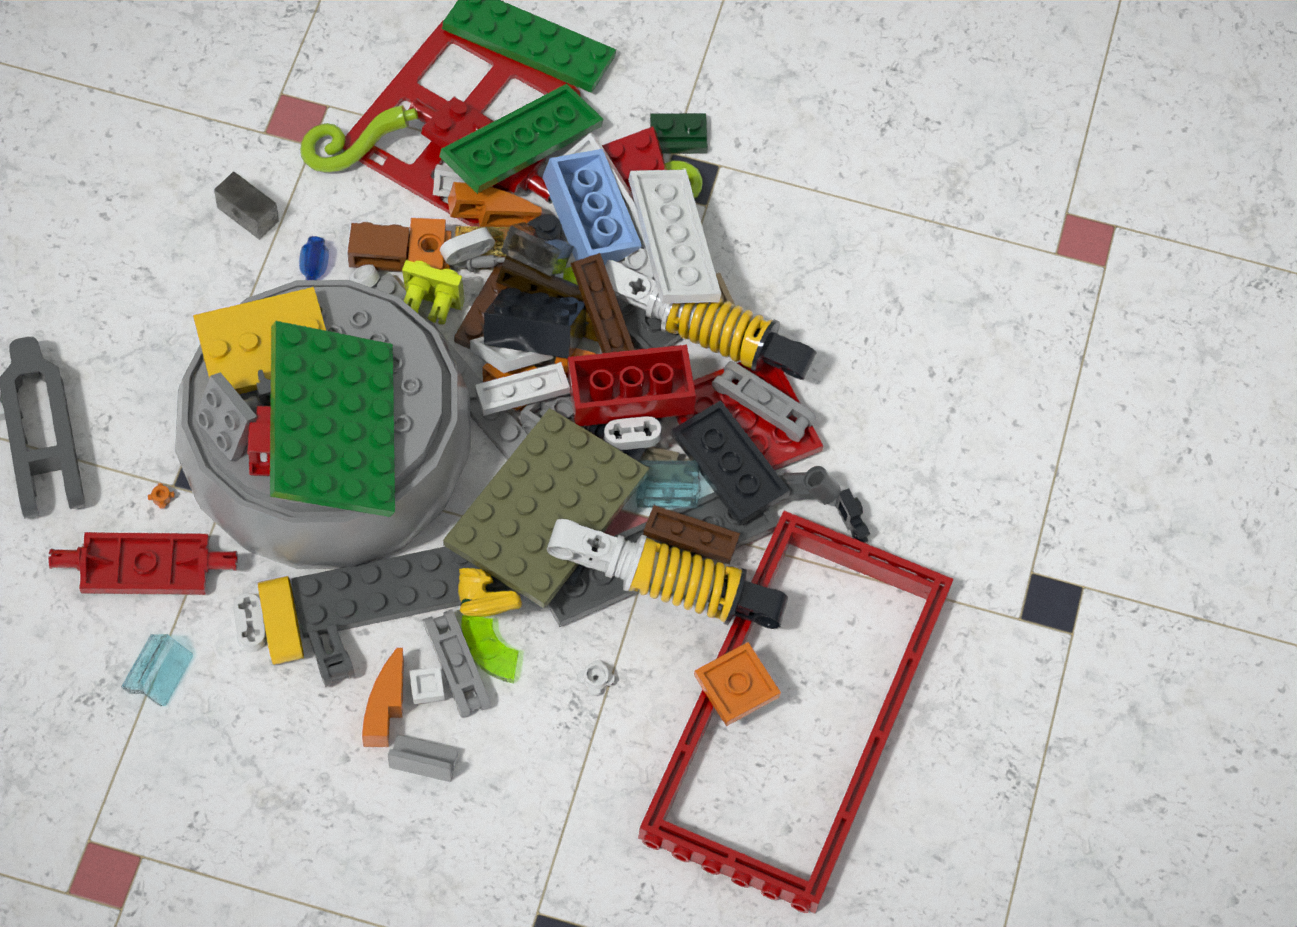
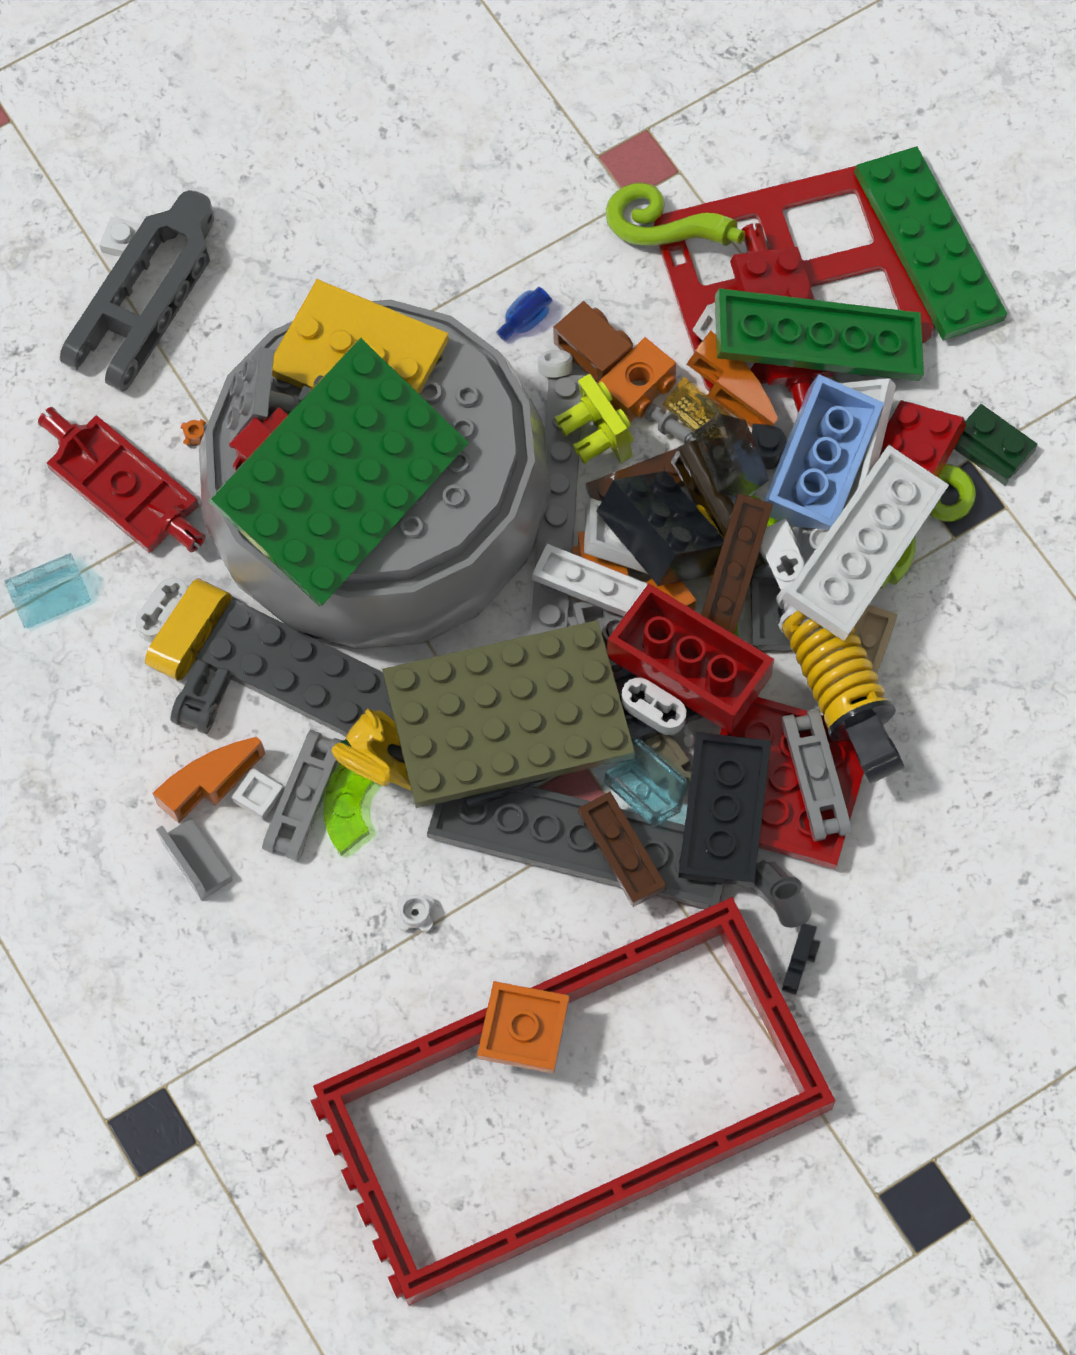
camera: 50 degrees right, 5 degrees up
(246, 205) = (510, 214): clear smoke brick -> none
(467, 246) = (669, 403): white beam -> none
(667, 571) = (550, 874): piece -> none

